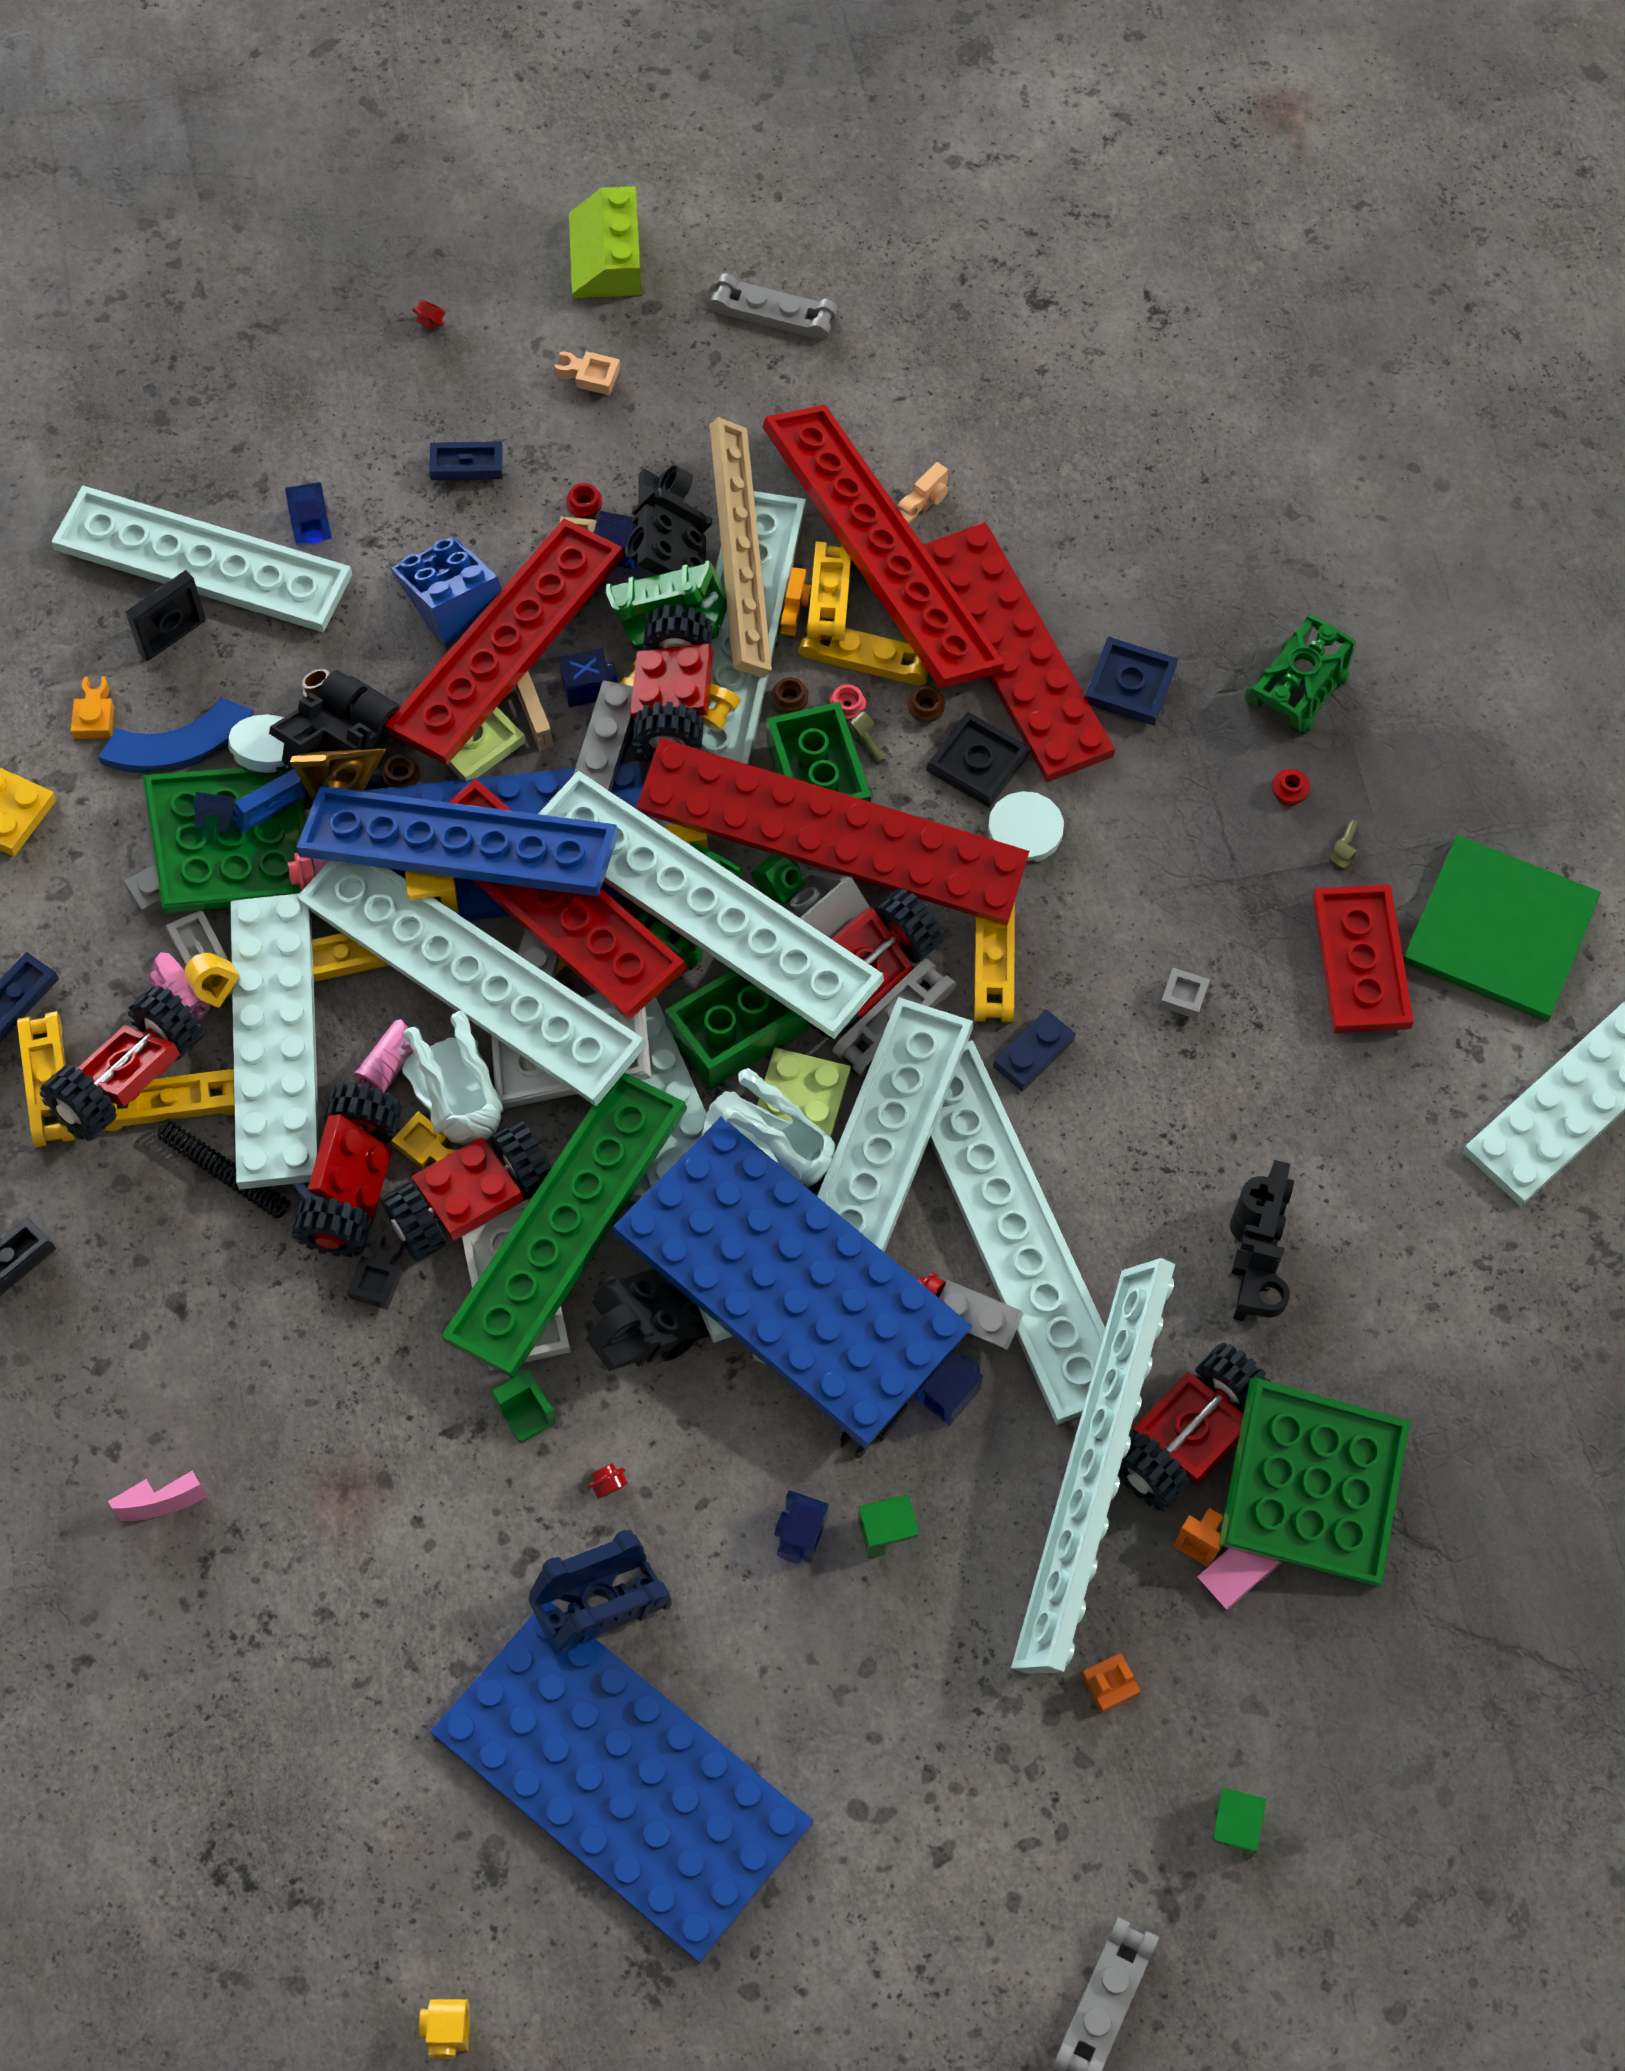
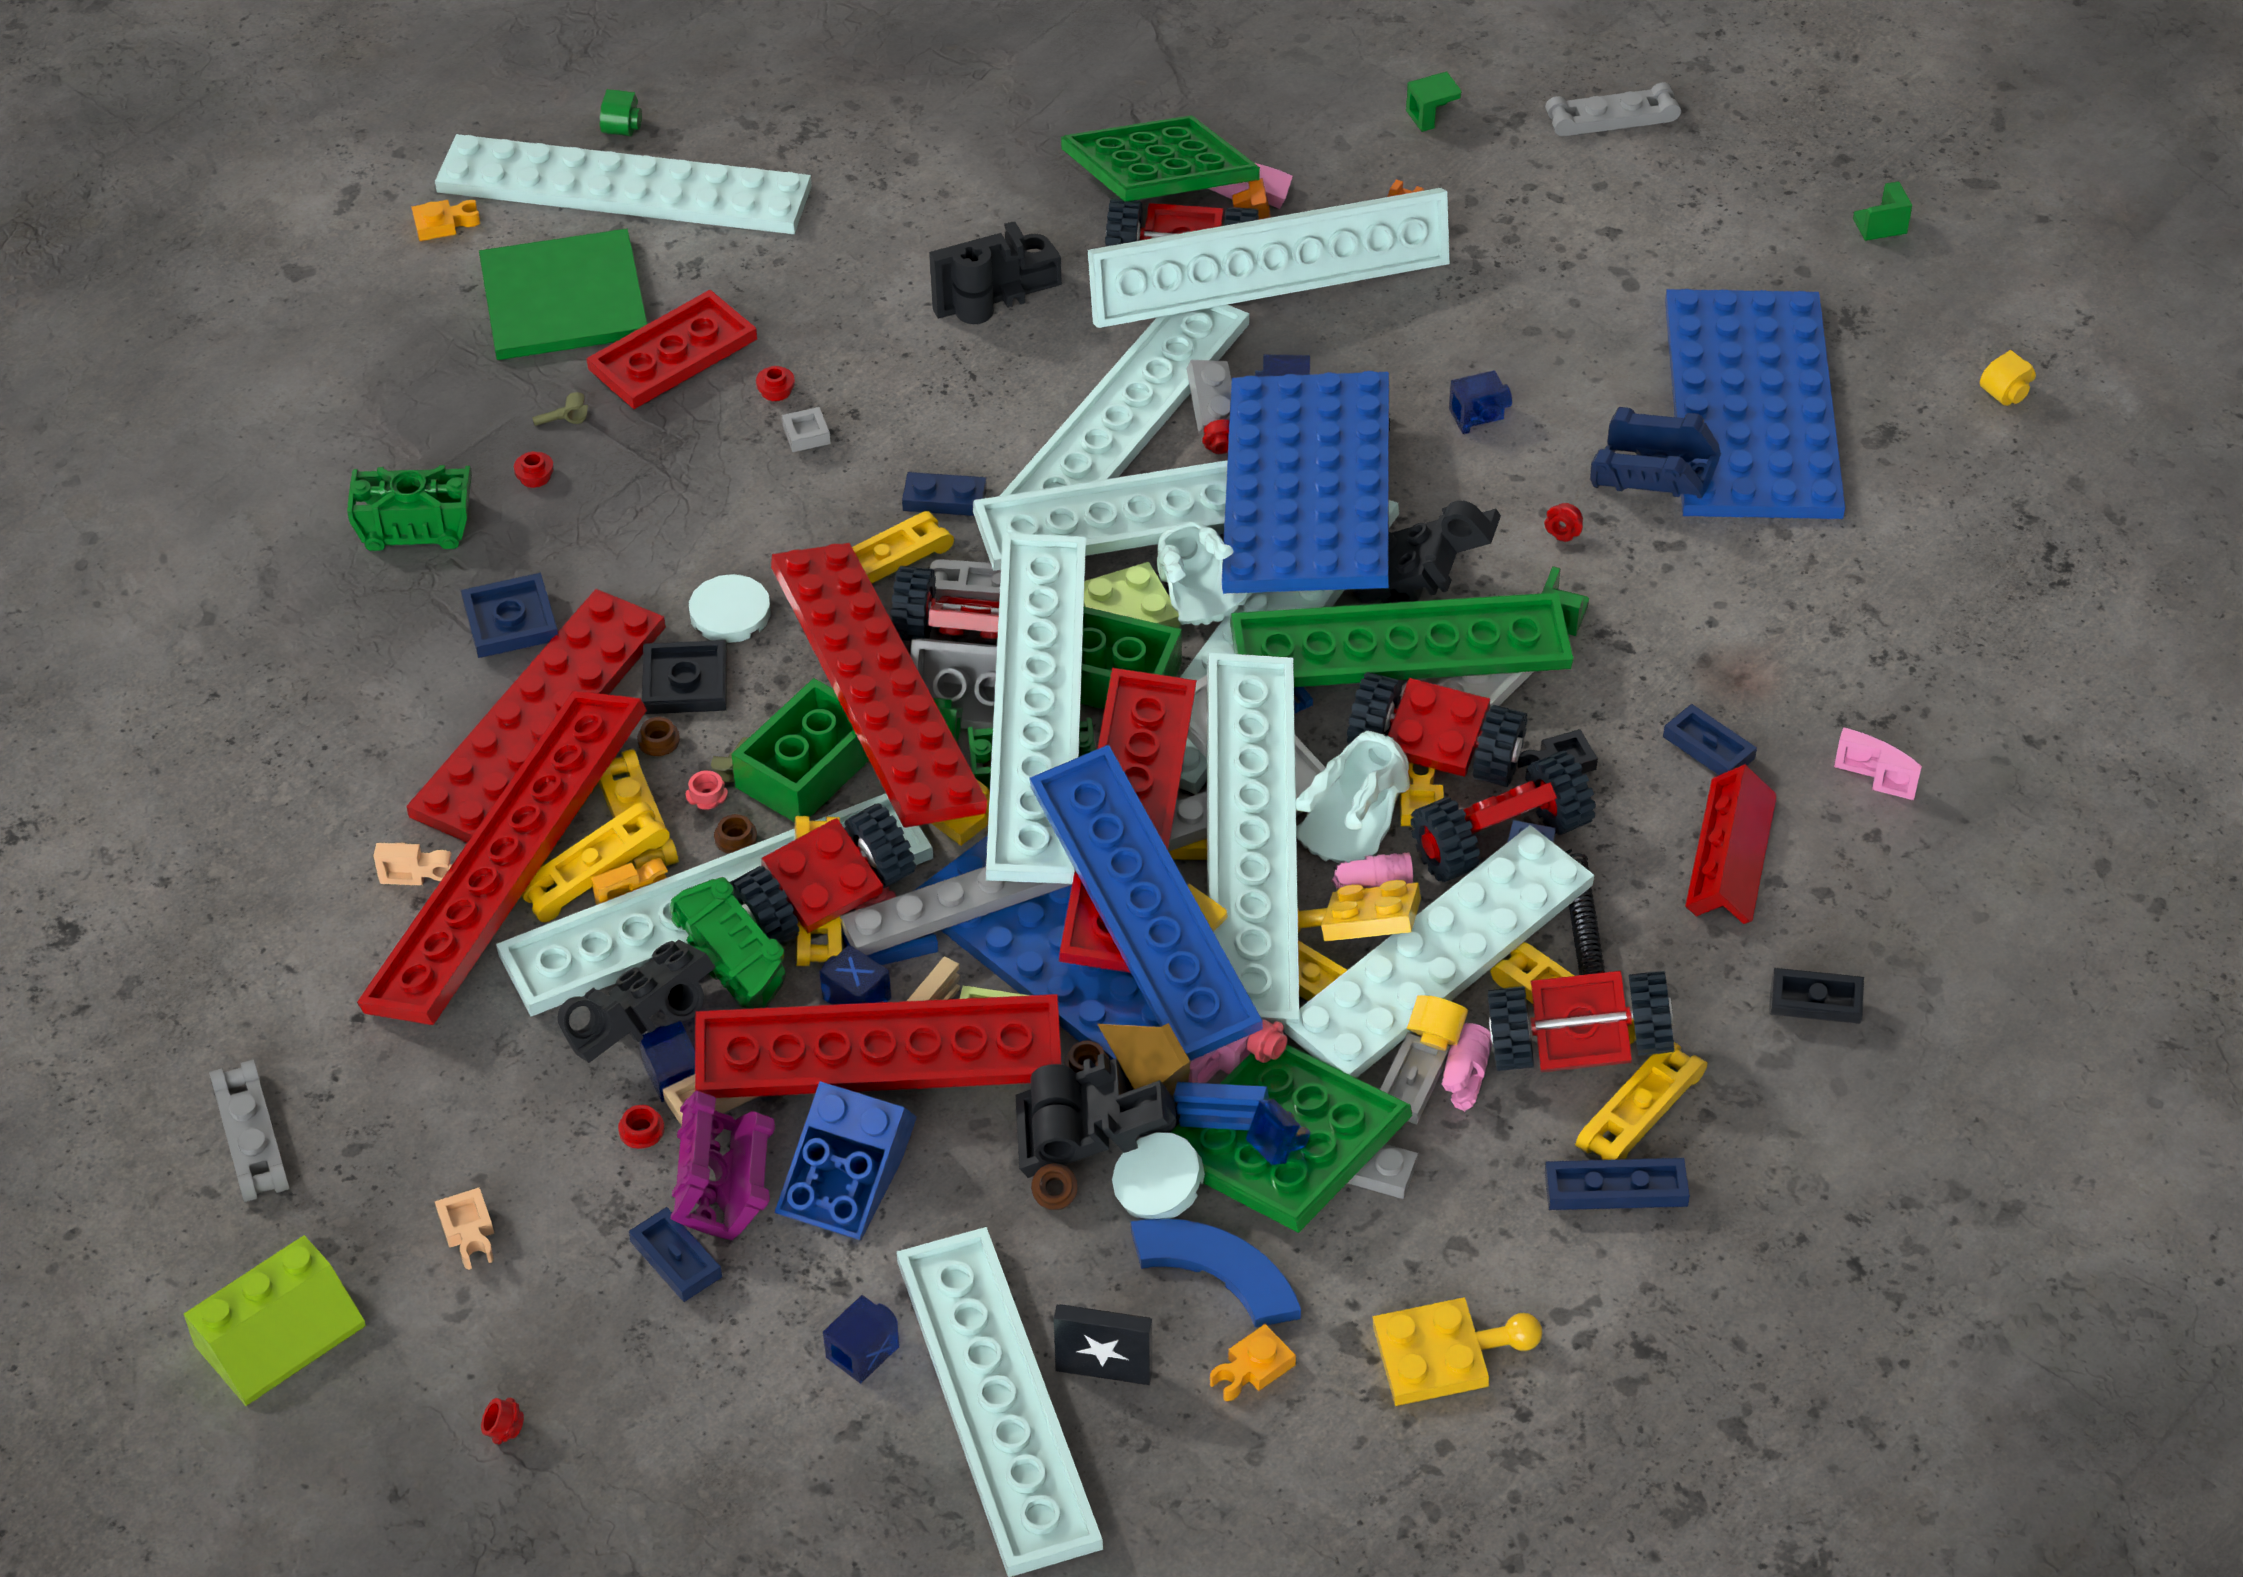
camera: 125 degrees left, 15 degrees down
(189, 1326) = (1732, 845): none -> red panel
(293, 1395) = (1708, 741): none -> dark blue plate
(348, 1012) = (1366, 911): none -> yellow plate
(493, 521) = (738, 1173): none -> magenta piece
(740, 548) = (594, 948): tan plate -> none
(886, 1524) = (1426, 358): green panel -> none
(1263, 1019) = (775, 383): none -> red plate

